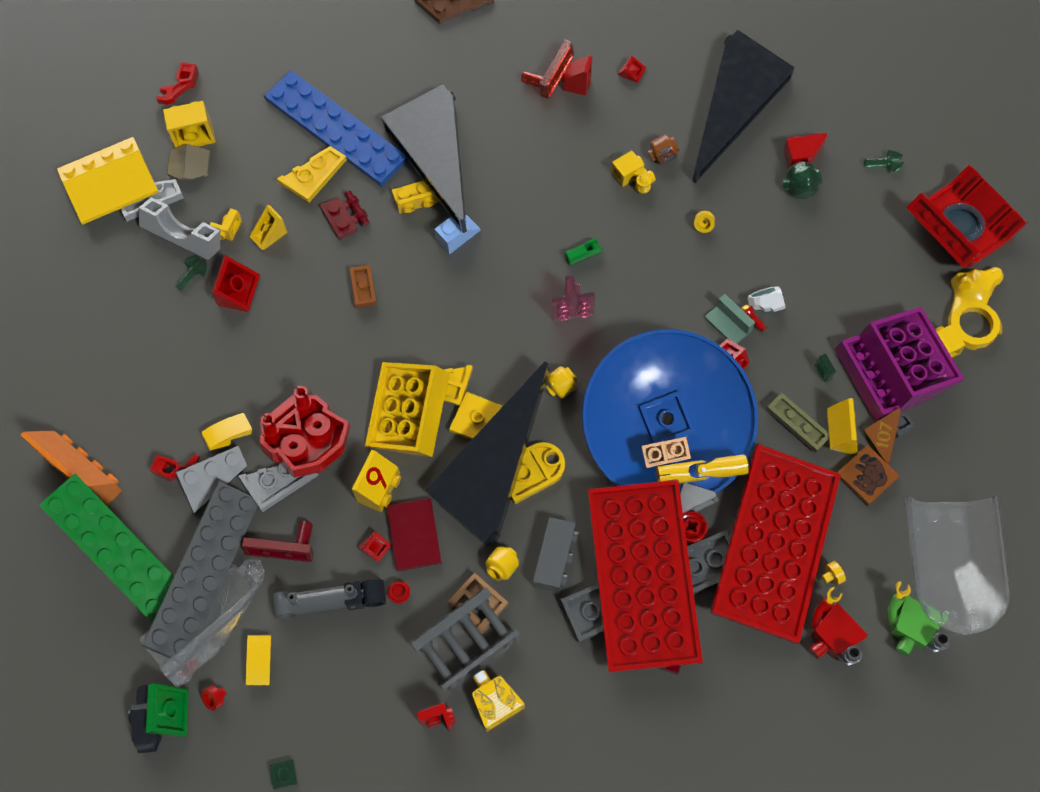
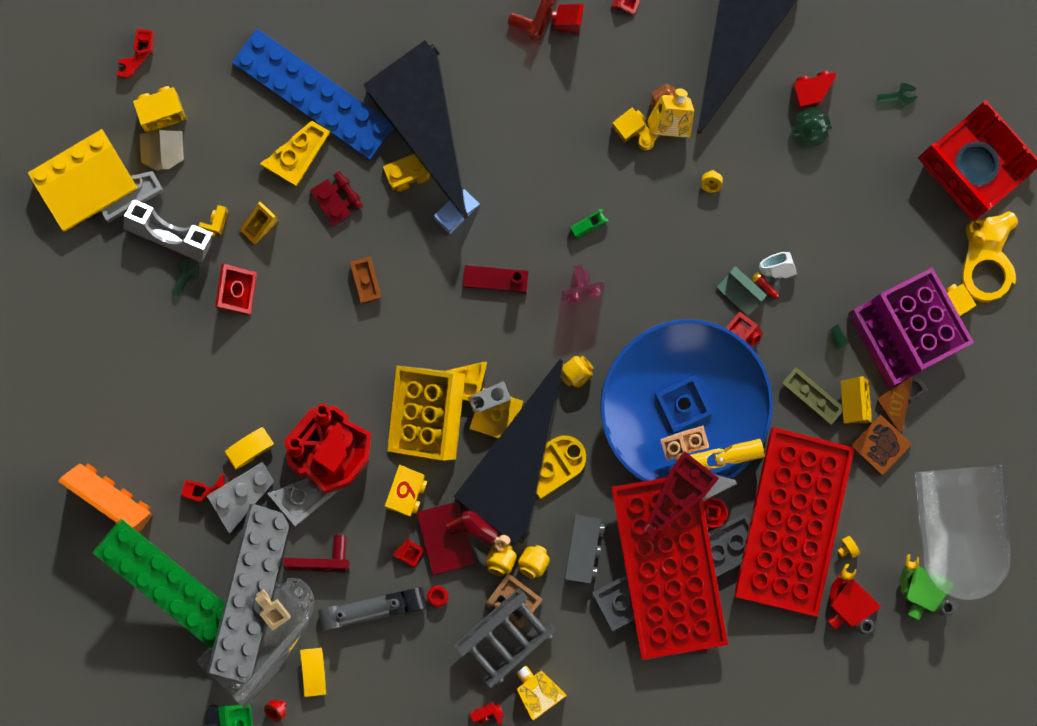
camera: 10 degrees left, 15 degrees up
(223, 590) = (273, 612): none -> tan plate
(305, 432) = (332, 451): none -> red slope
(448, 521) = (478, 528): none -> dark red arm
(468, 558) = (500, 561): none -> yellow head
(471, 397) = (489, 397): none -> light grey leg
(492, 295) = (495, 278): none -> dark red piece
(670, 157) = (672, 115): none -> yellow torso
(674, 478) = (692, 472): none -> dark red plate

